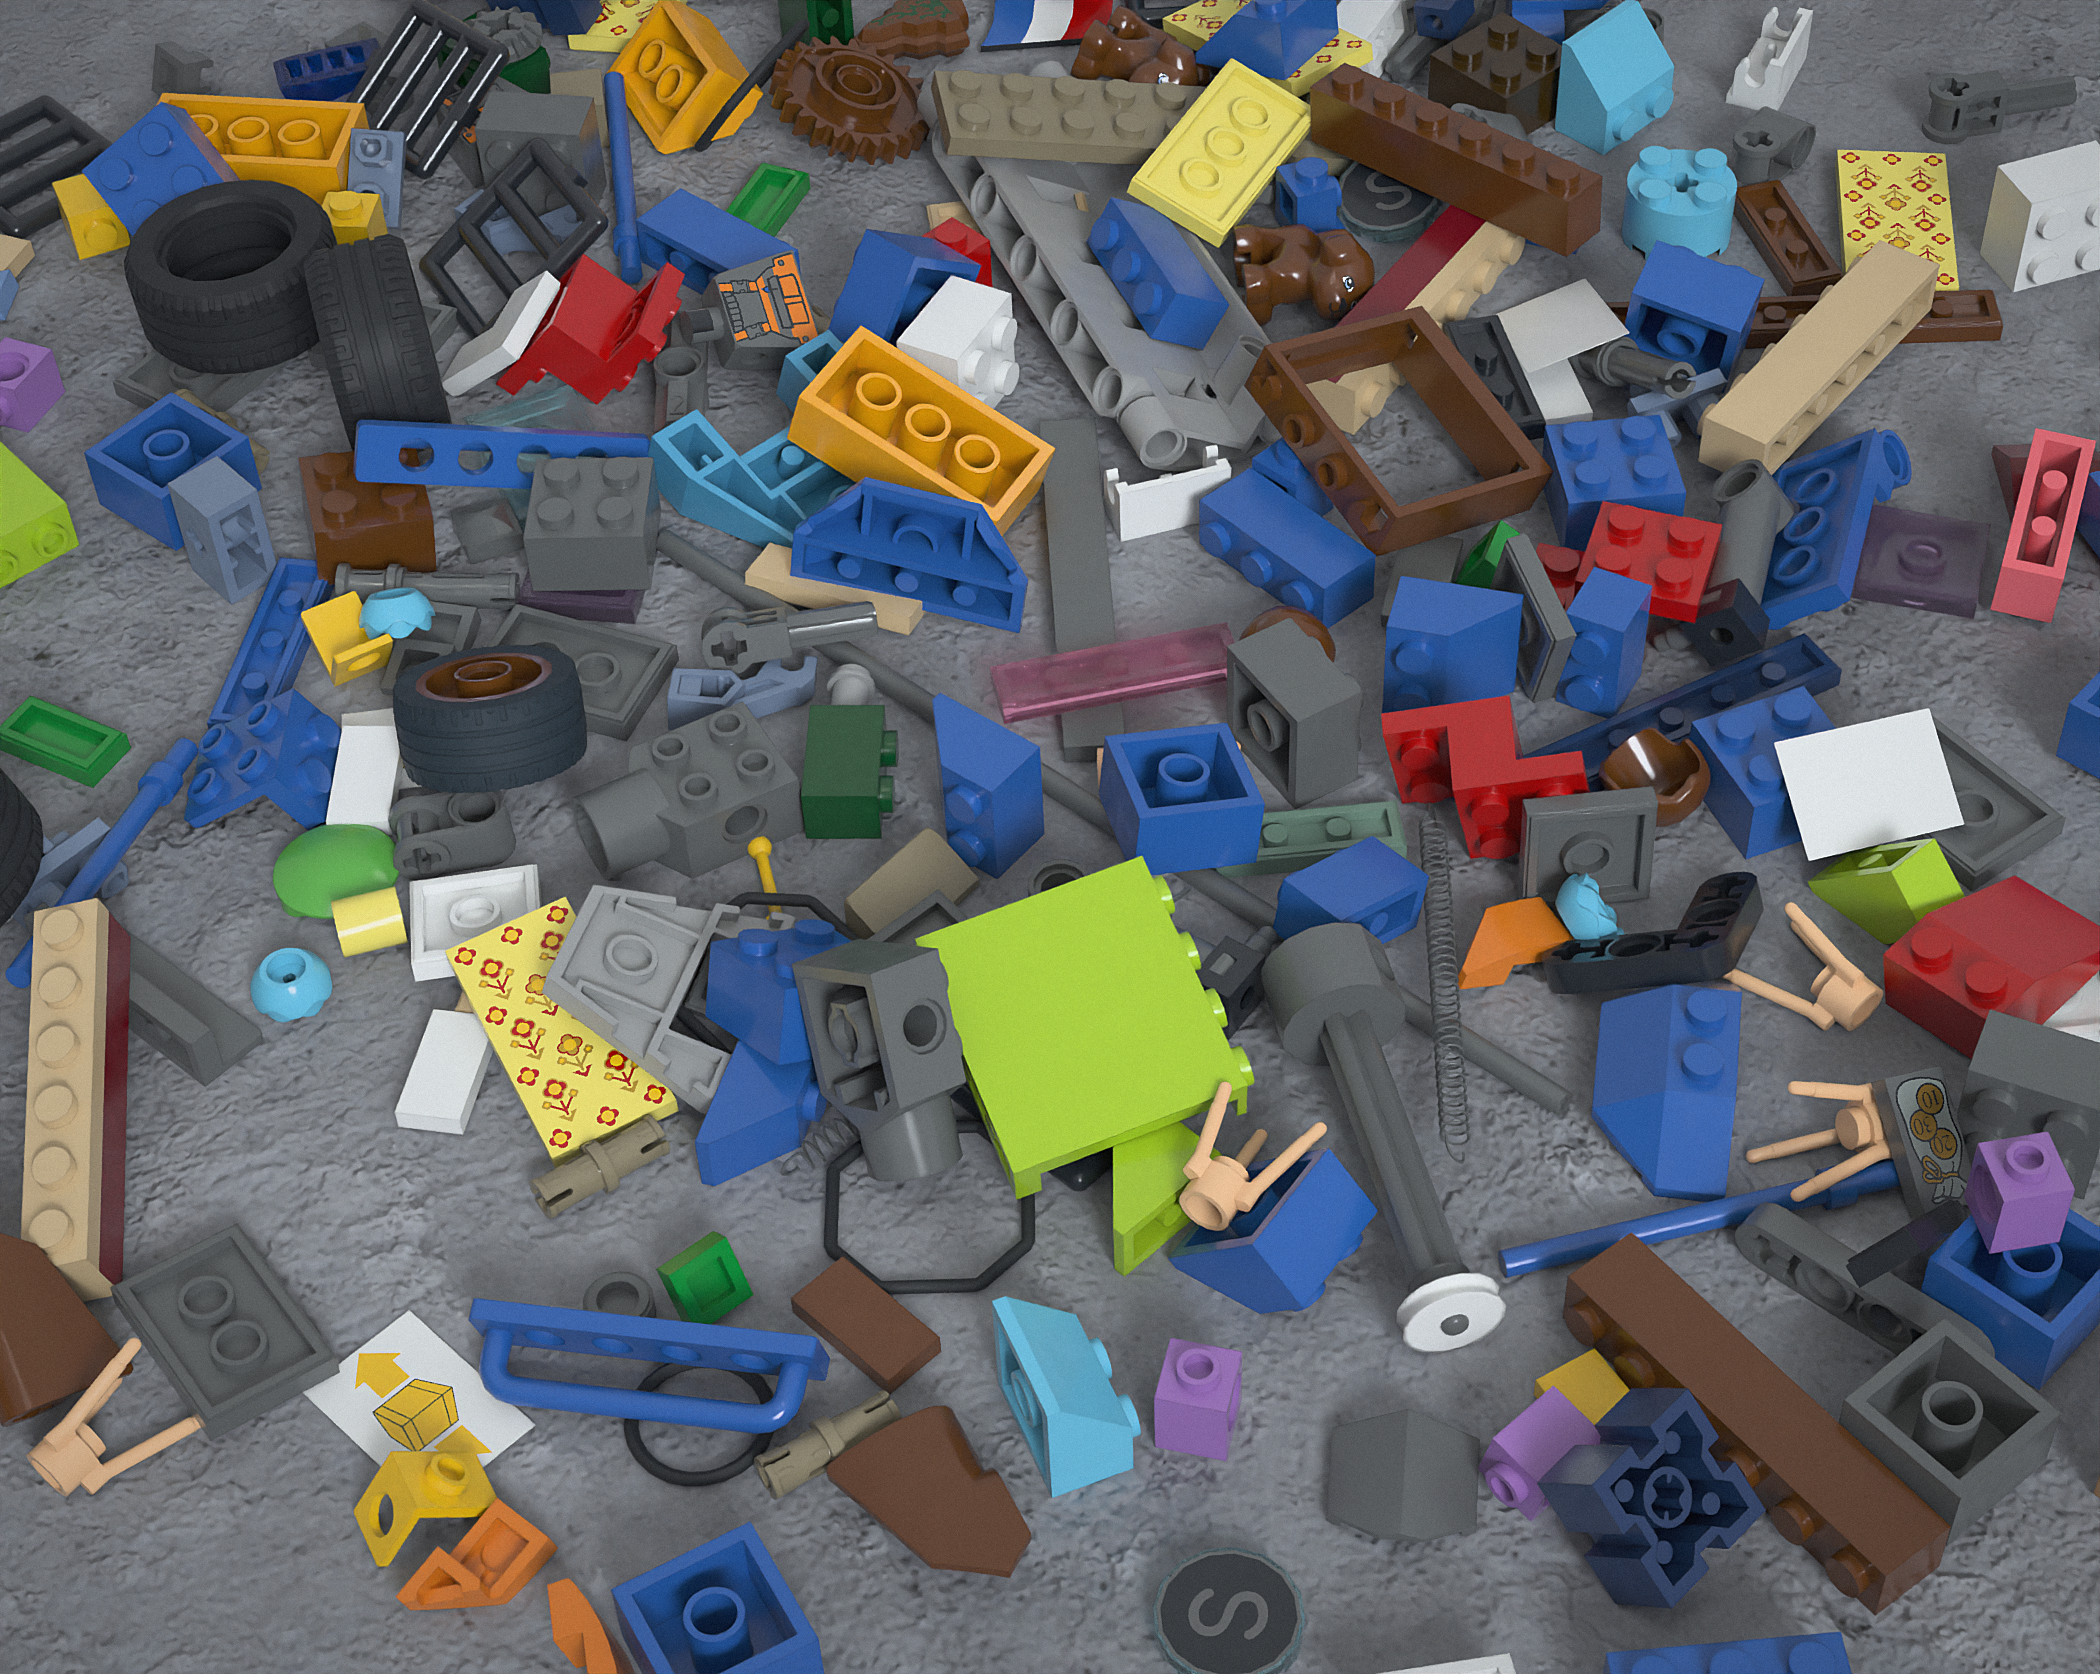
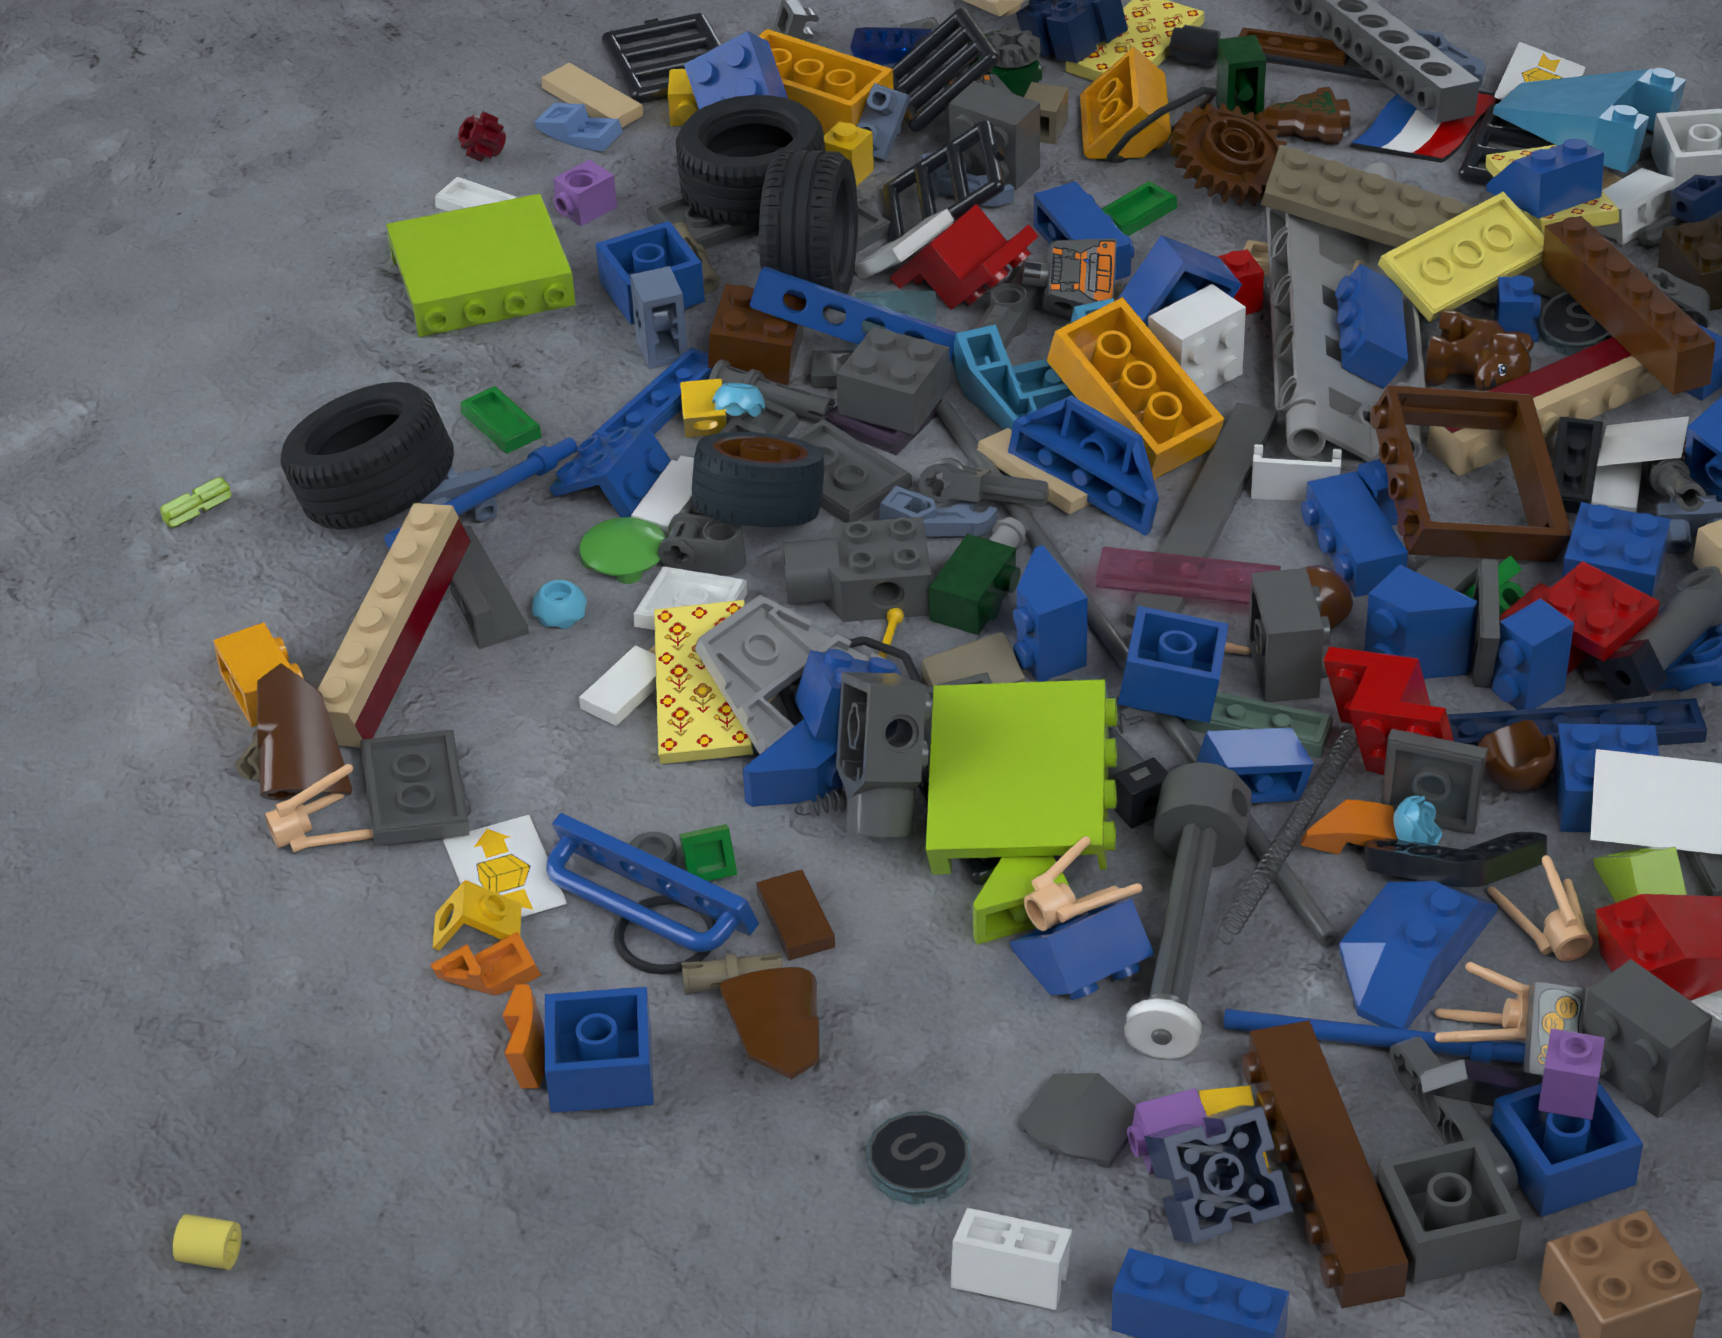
camera: 25 degrees right, 5 degrees down
(369, 922) = (624, 581): light yellow gear -> none
(599, 1167) = (685, 769): dark tan pin -> none
(625, 233) = (1025, 208): blue bar -> none
(929, 1285) = (854, 908): black piece -> none
(1062, 1395) = (886, 989): medium azure slope -> none
(1136, 53) = (1453, 177): reddish brown animal -> none
(1198, 1399) = (971, 1023): medium lavender brick -> none

